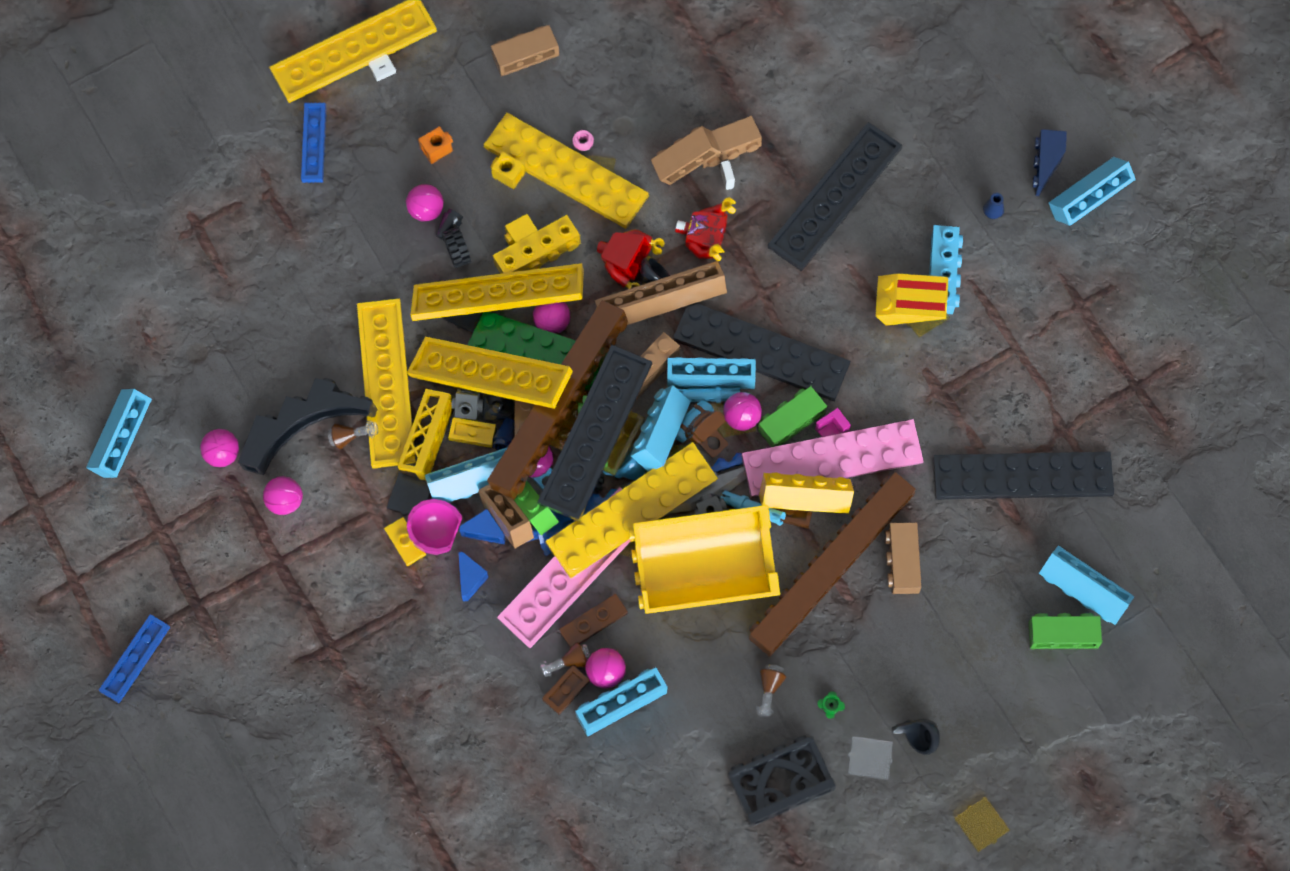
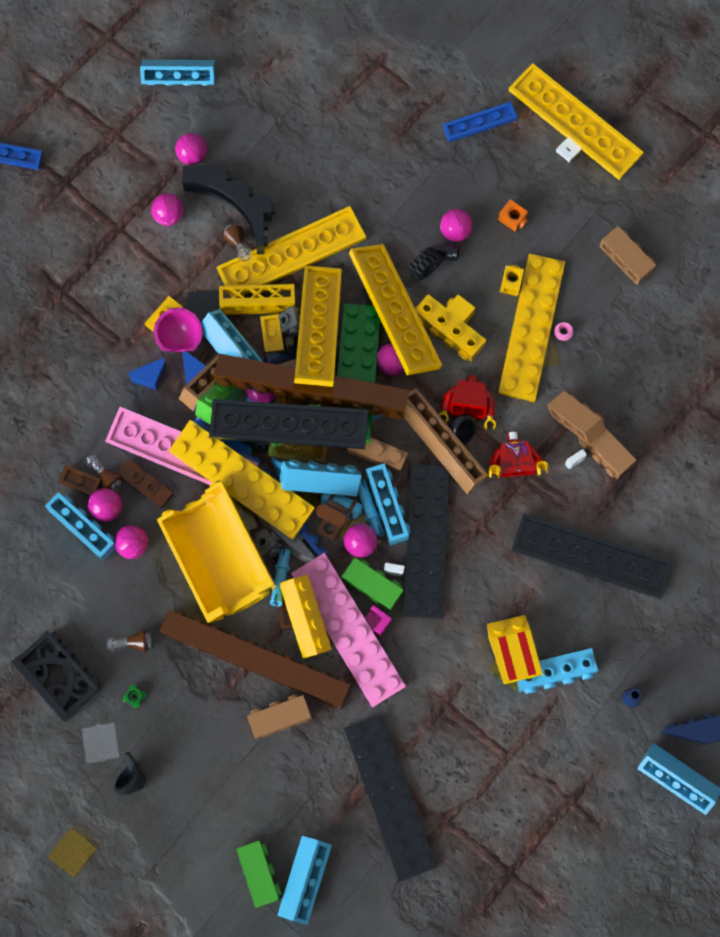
camera: 70 degrees right, 5 degrees up
(658, 652) = (131, 542): none -> dark pink piece
(783, 391) = (393, 569): none -> white tile

